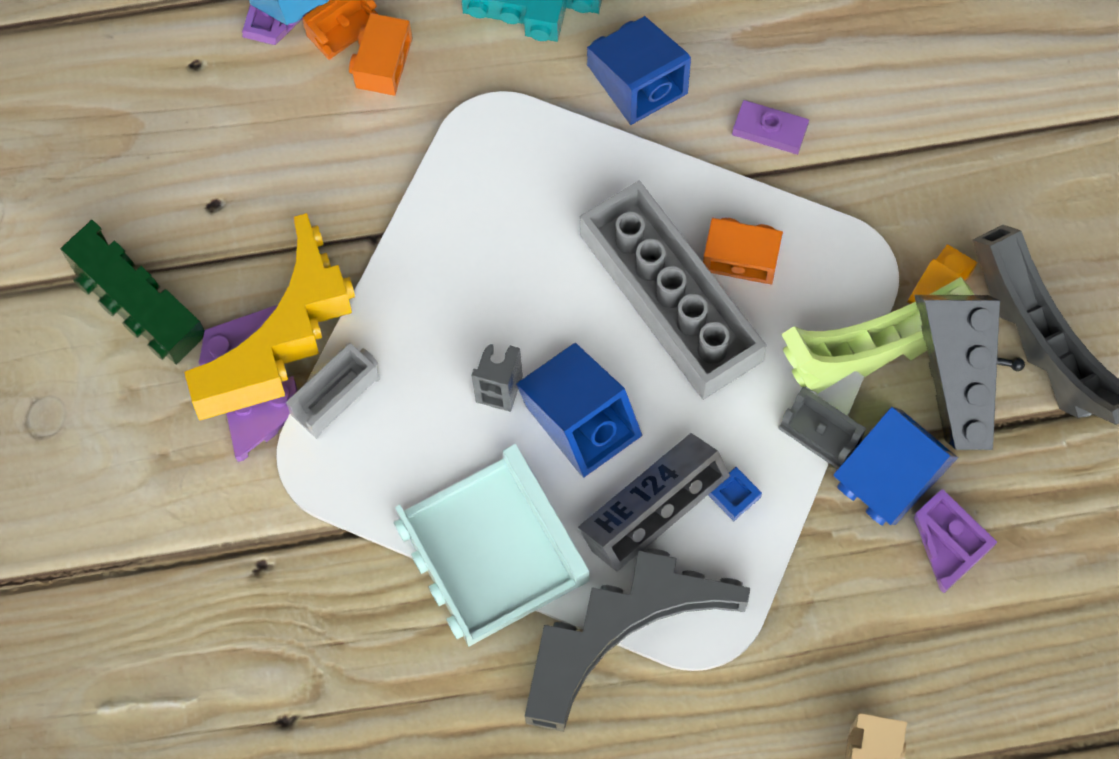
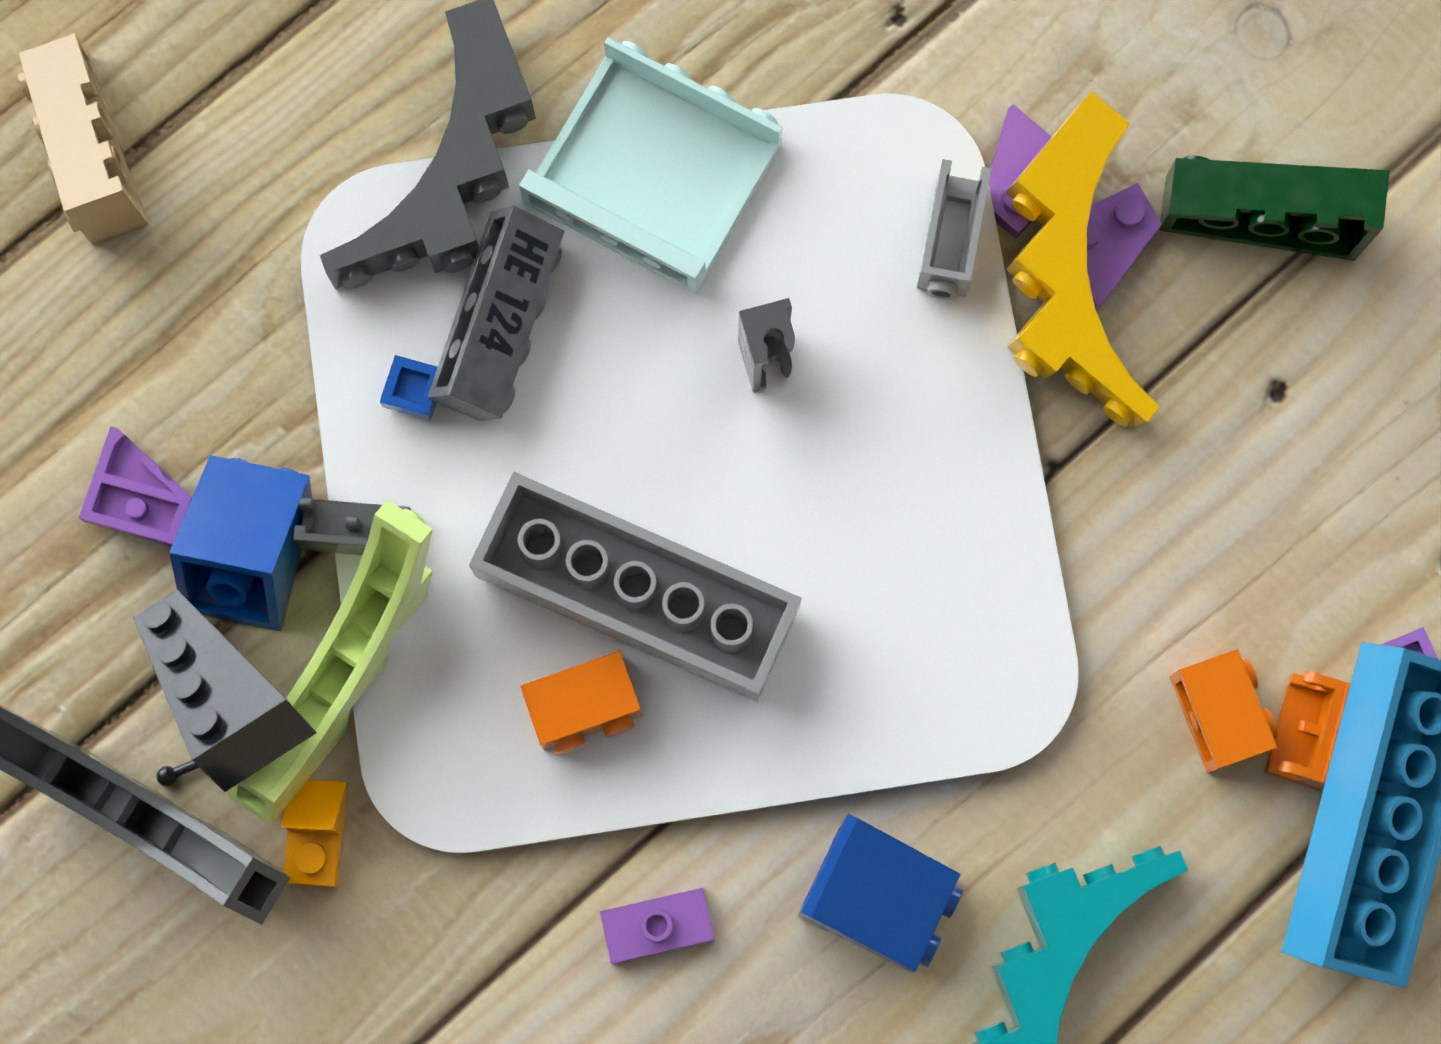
camera: 145 degrees right, 10 degrees up
(580, 408) = (656, 375): blue slope -> none

